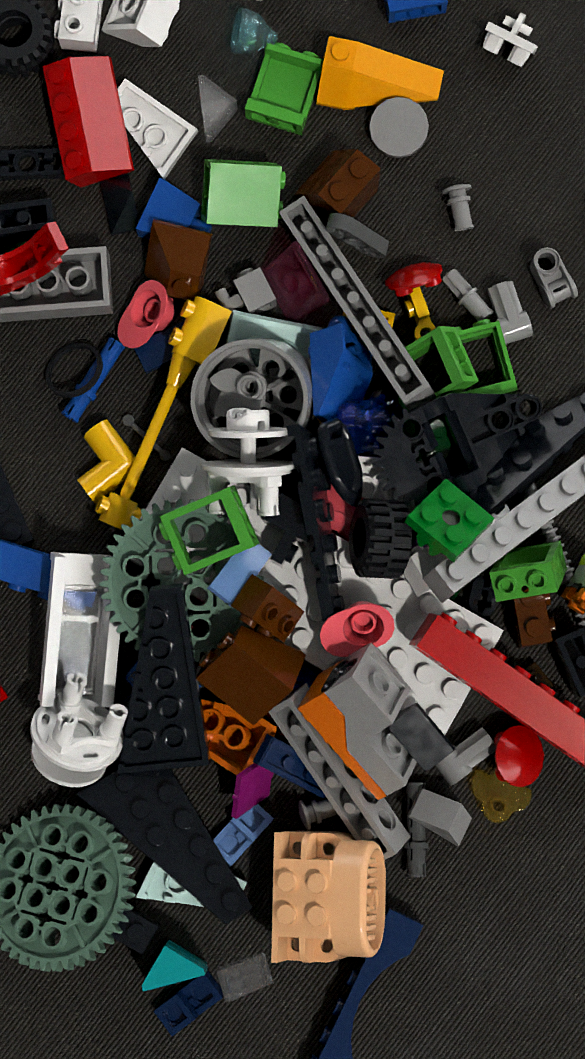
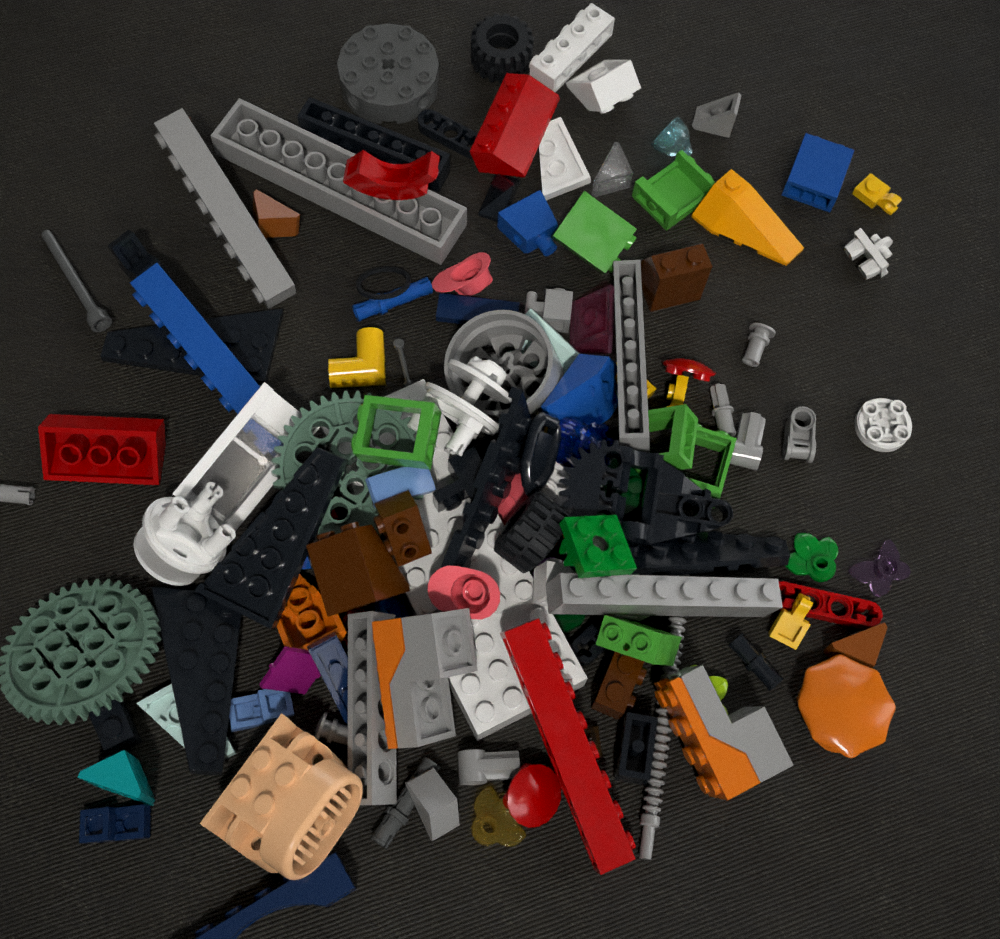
camera: 25 degrees right, 15 degrees down
(177, 258) = (516, 251): reddish brown slope -> none
(192, 345) = (502, 297): yellow bar -> none
(236, 392) = (495, 349): light grey plate -> none
(244, 976) = (173, 830): clear slope -> none
(357, 235) = (663, 311): dark grey beam -> none
(399, 127) = (744, 264): light grey tile -> none
(421, 736) = (459, 719): black slope -> none

